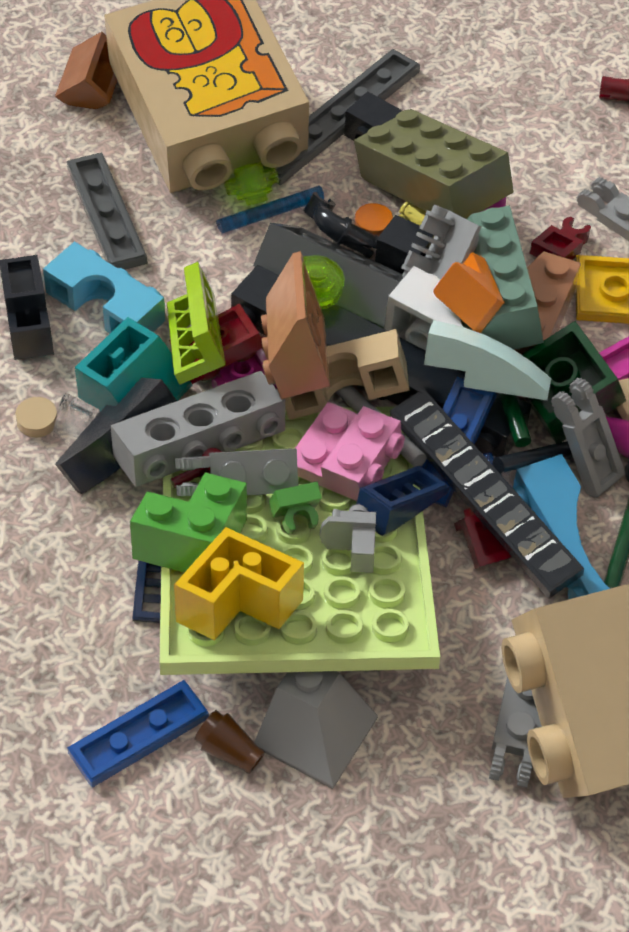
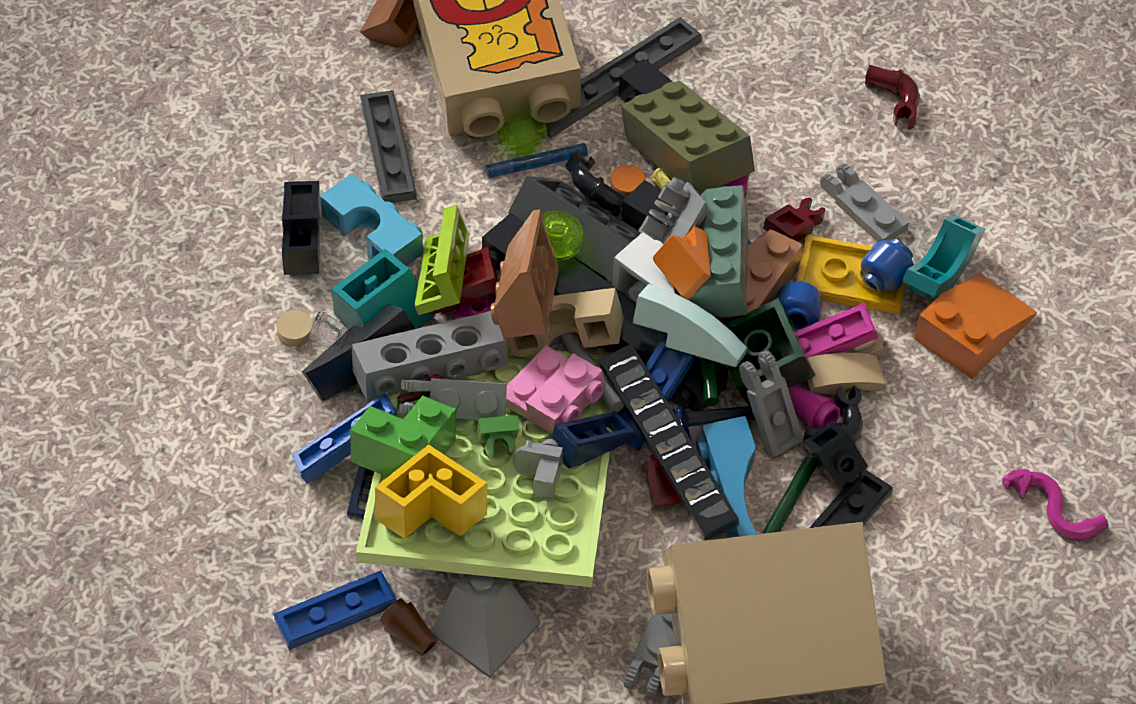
camera: 10 degrees right, 0 degrees up
(107, 540) = (334, 444): none -> blue tile
(594, 322) = (801, 303): none -> blue head

